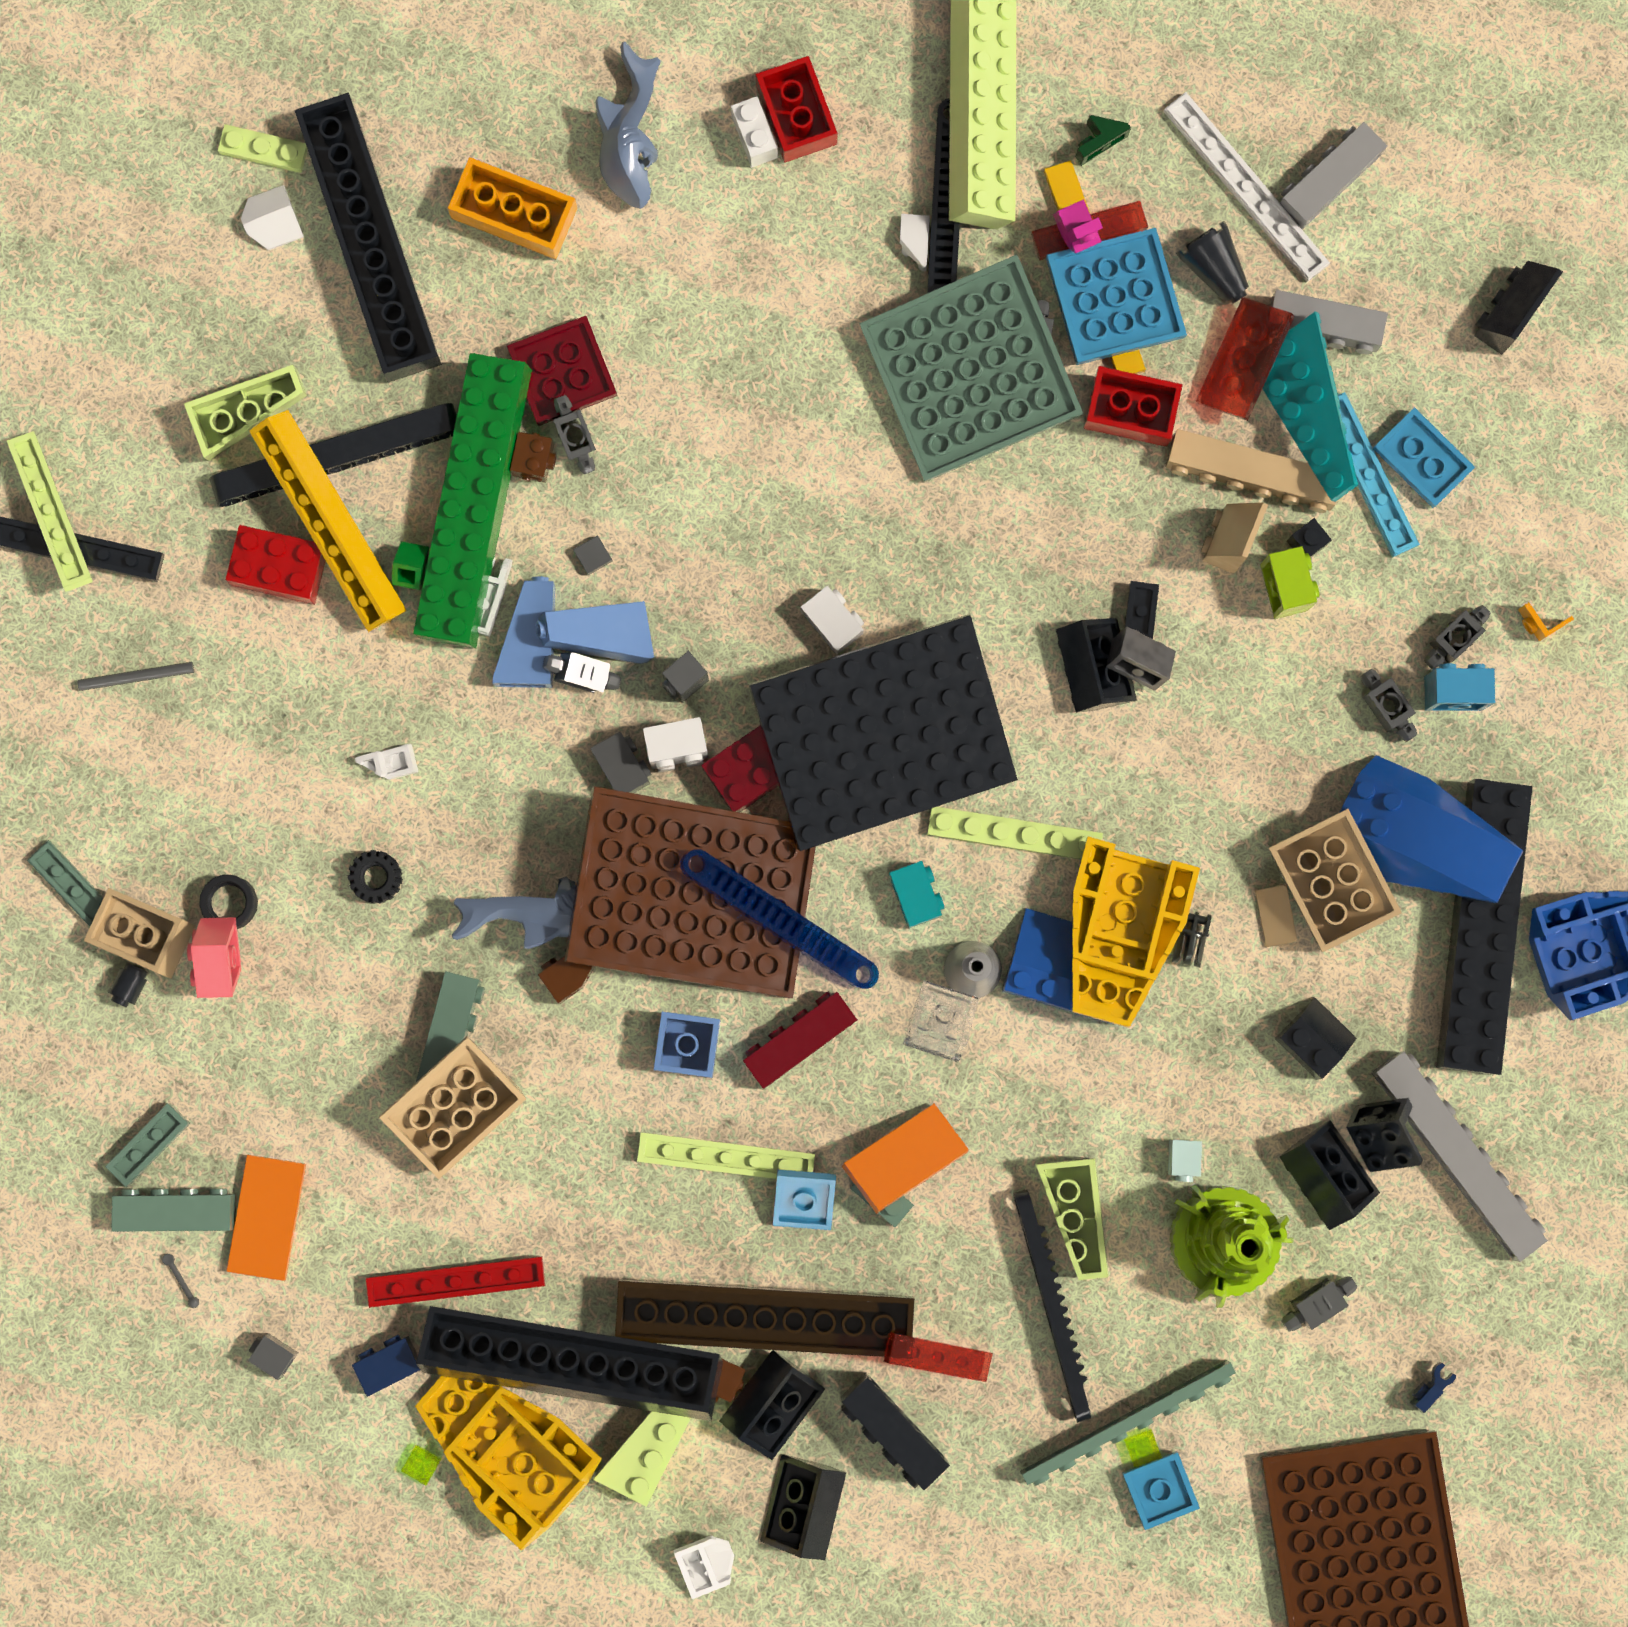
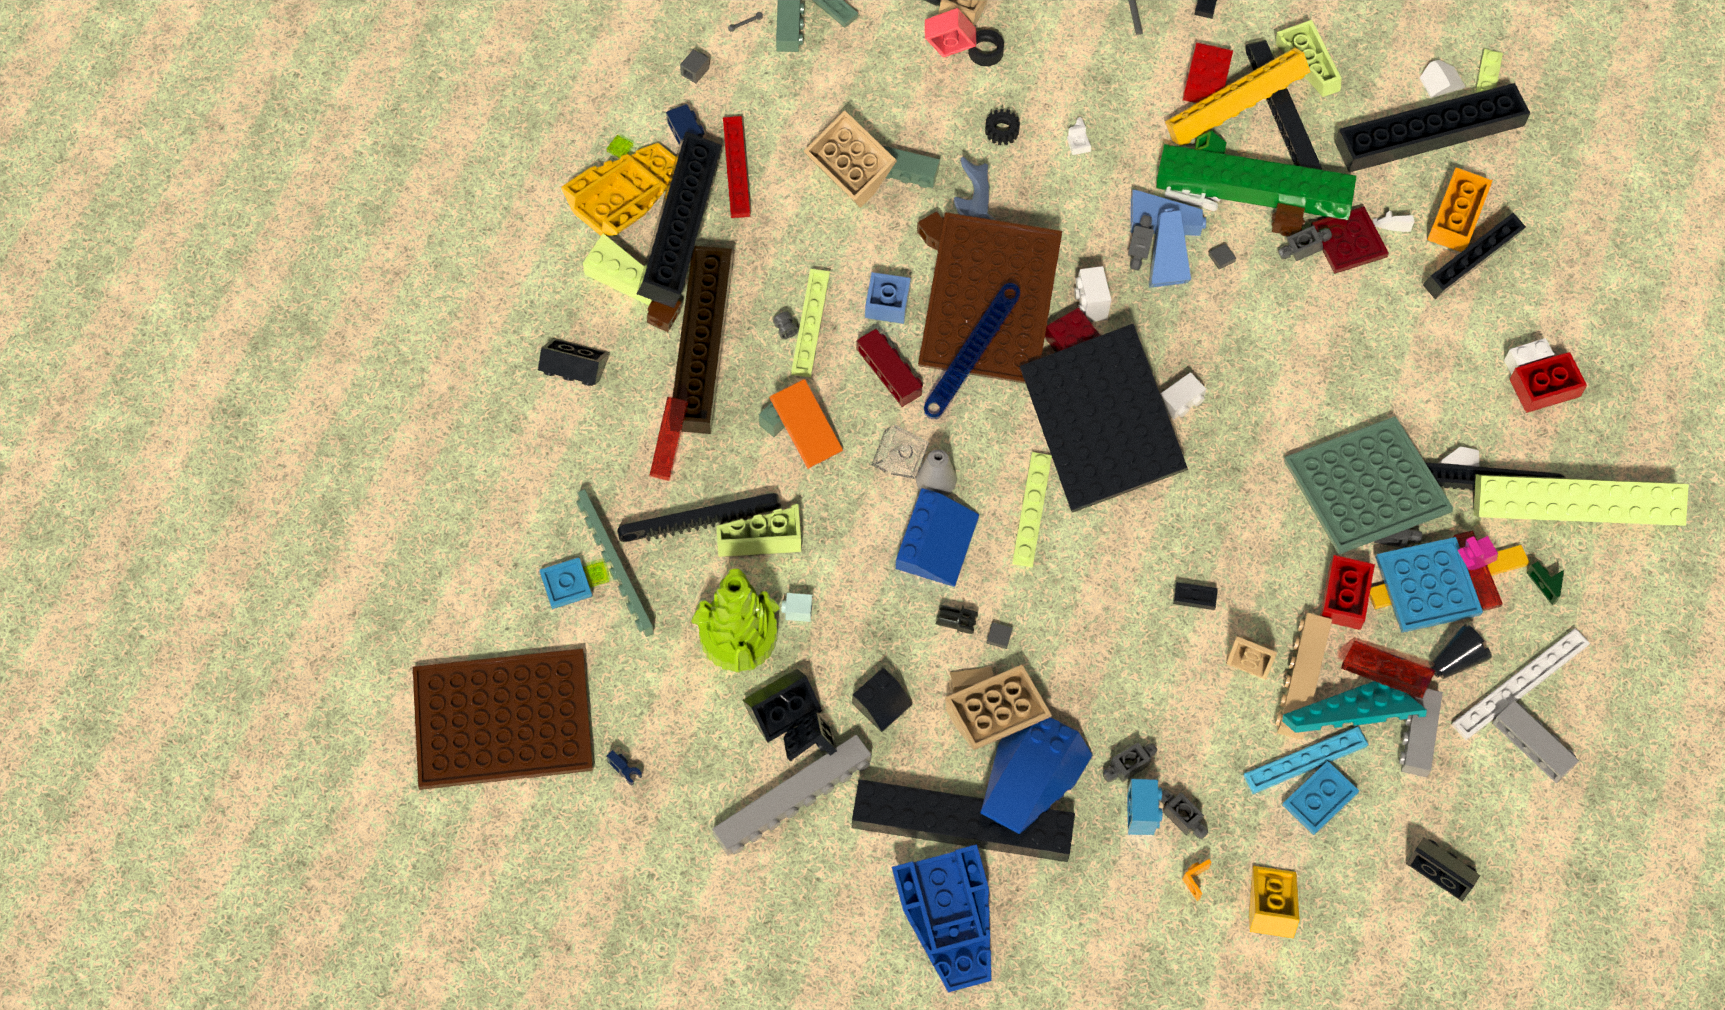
camera: 95 degrees right, 20 degrees down
(266, 1217) = (783, 66): orange tile -> none
(529, 313) = (1395, 223): none -> white slope
(592, 194) = (1474, 256): none -> black brick
(620, 764) = (1069, 265): dark grey brick -> none
(621, 137) = (1525, 271): sand blue piece -> none
(684, 677) = (1139, 301): dark grey brick -> none
(705, 1565) = (541, 302): white slope -> none
(733, 1194) = (786, 327): none -> dark grey wheel
(772, 1405) = (642, 344): black slope -> none
(804, 1199) = (780, 364): dark azure plate -> none
(894, 1431) = (620, 411): black brick -> none
(916, 894) = (989, 441): teal brick -> none
(1085, 656) = (1155, 564): black slope -> none
(1124, 928) = (965, 563): yellow wedge -> none
(1141, 658) = (1160, 588): flat silver brick -> none
(1210, 879) = (999, 635): none -> dark grey tile
(1289, 582) = (1220, 690): lime brick -> none
(1311, 537) = (1252, 710): black brick -> none
(1319, 1303) = (689, 692): dark grey piece -> none
(1568, 524) = (1273, 902): none -> yellow slope

